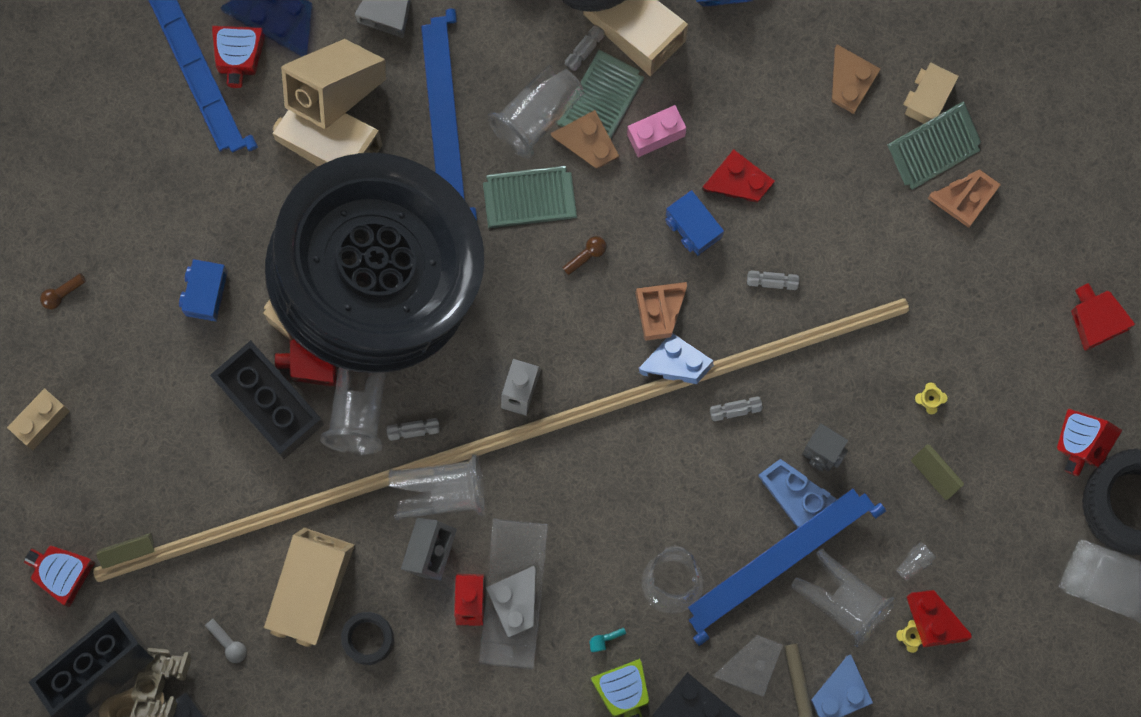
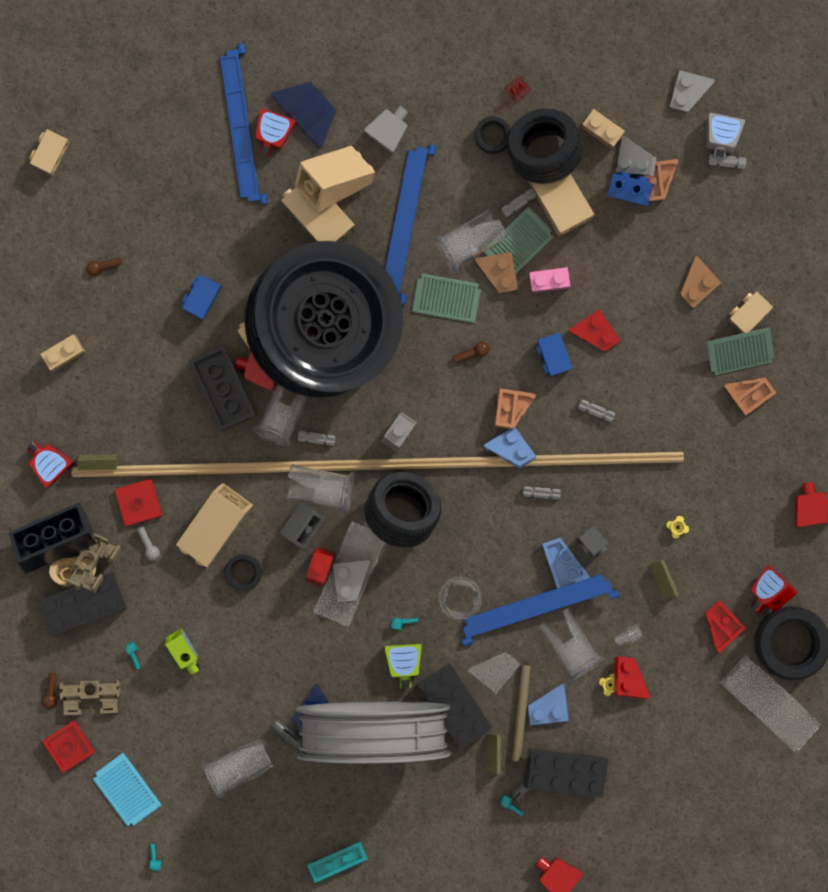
camera: 15 degrees right, 10 degrees up
(197, 588) = (138, 502): none -> red plate
(553, 509) = (416, 491): none -> black tyre
(1036, 509) = (723, 625): none -> red wing

